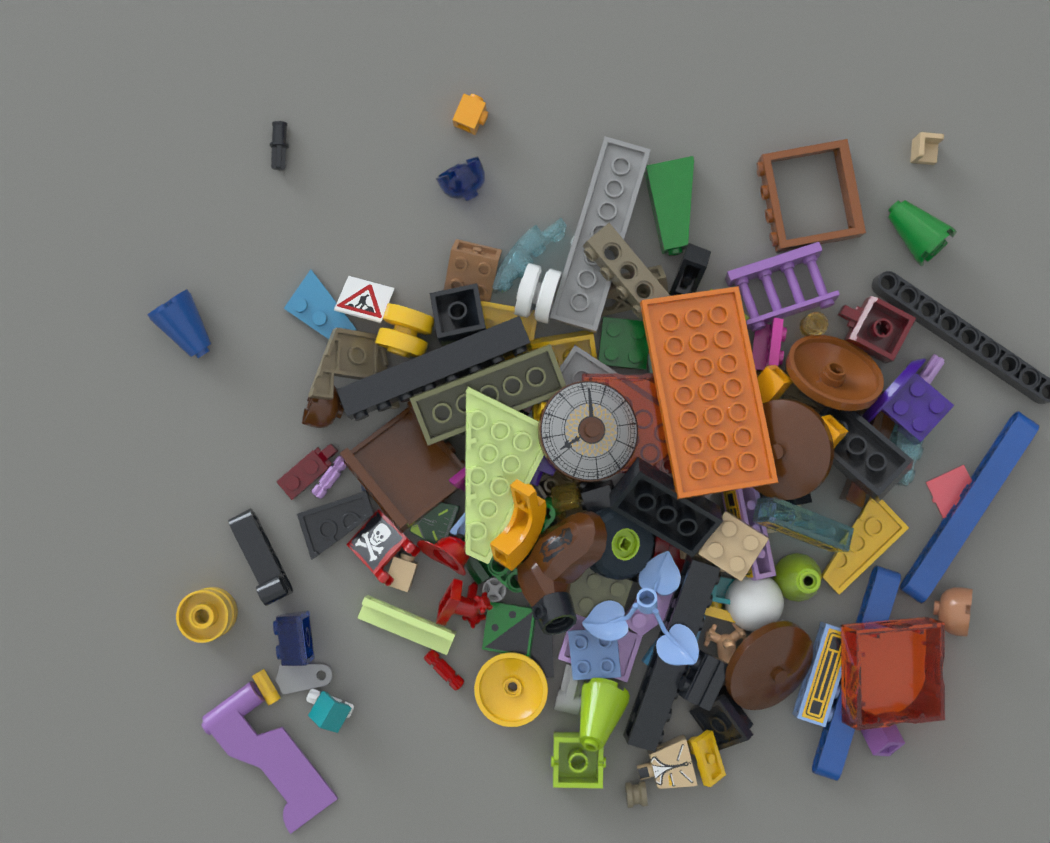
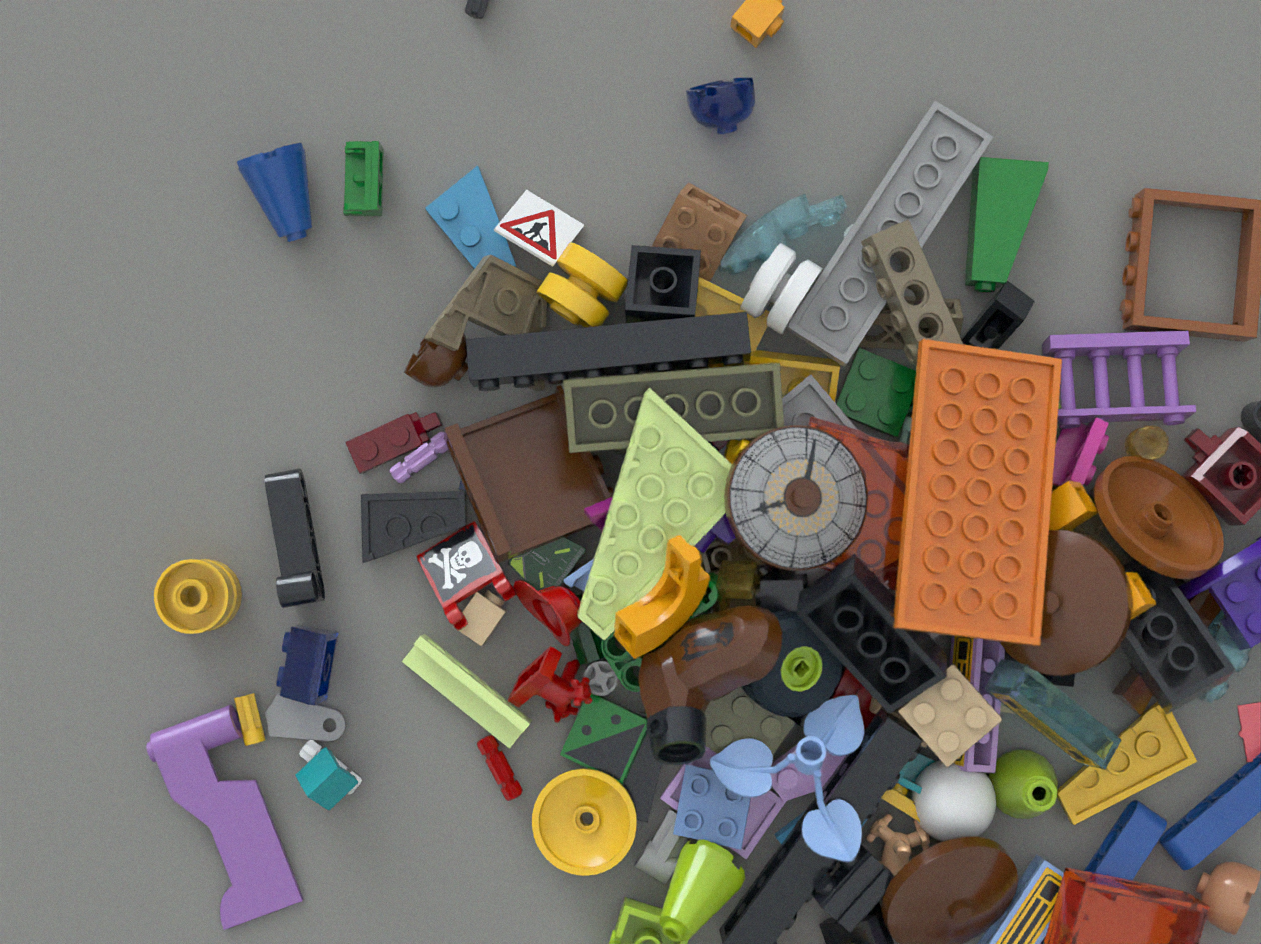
camera: 15 degrees right, 0 degrees up
(236, 300) = (363, 178): none -> green hinge

